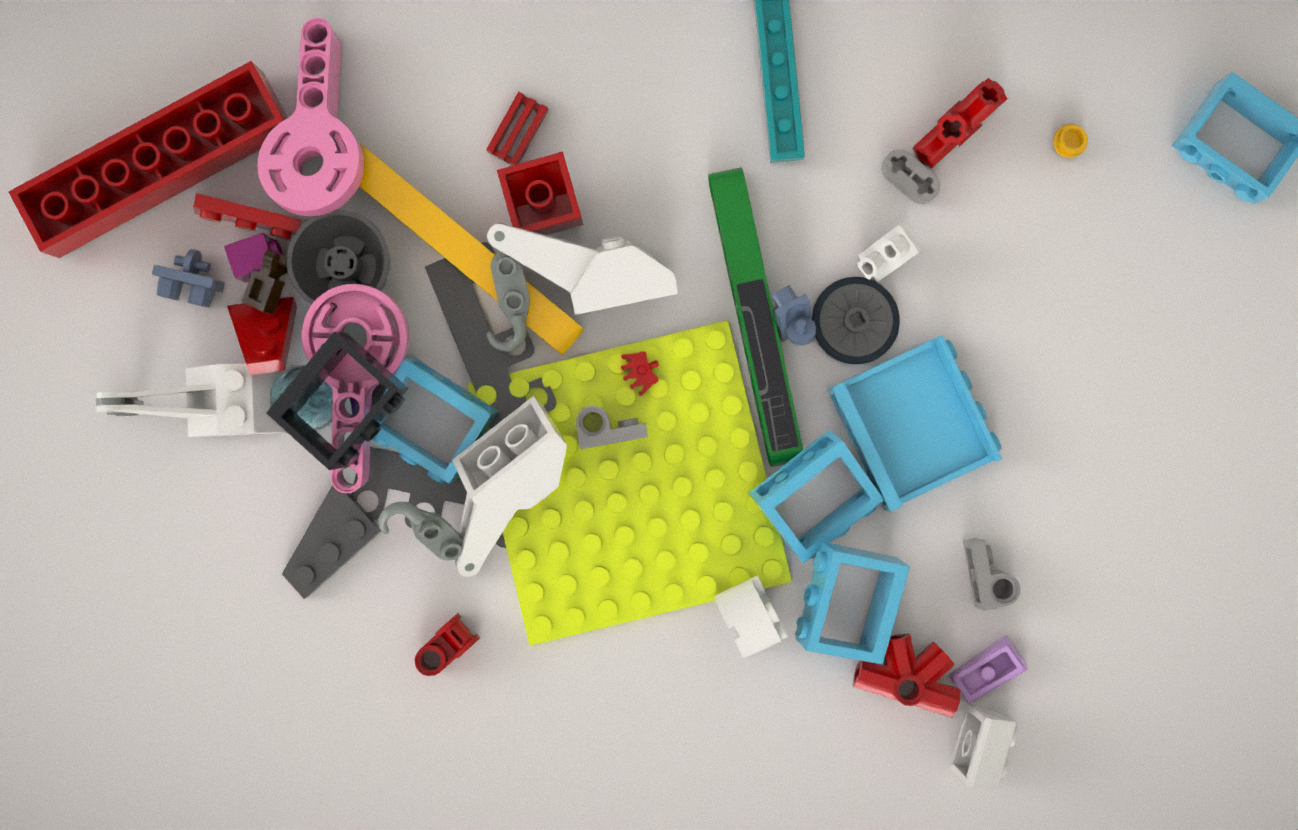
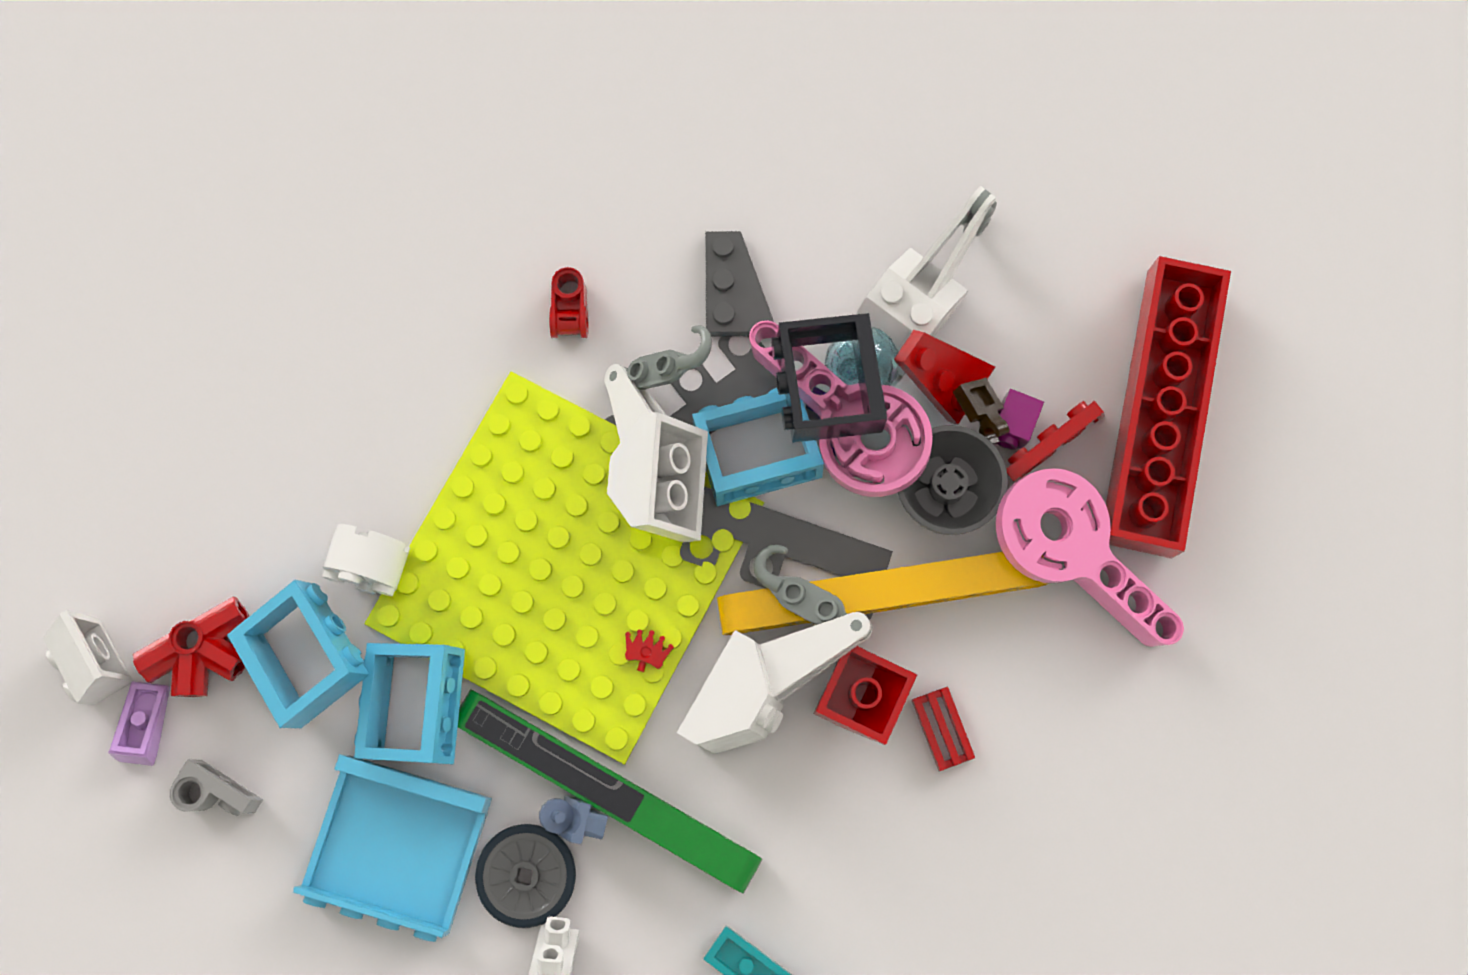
camera: 130 degrees right, 10 degrees down
(202, 287) = (1052, 341): sand blue hips -> none
(628, 430) = (605, 592): light grey plate -> none

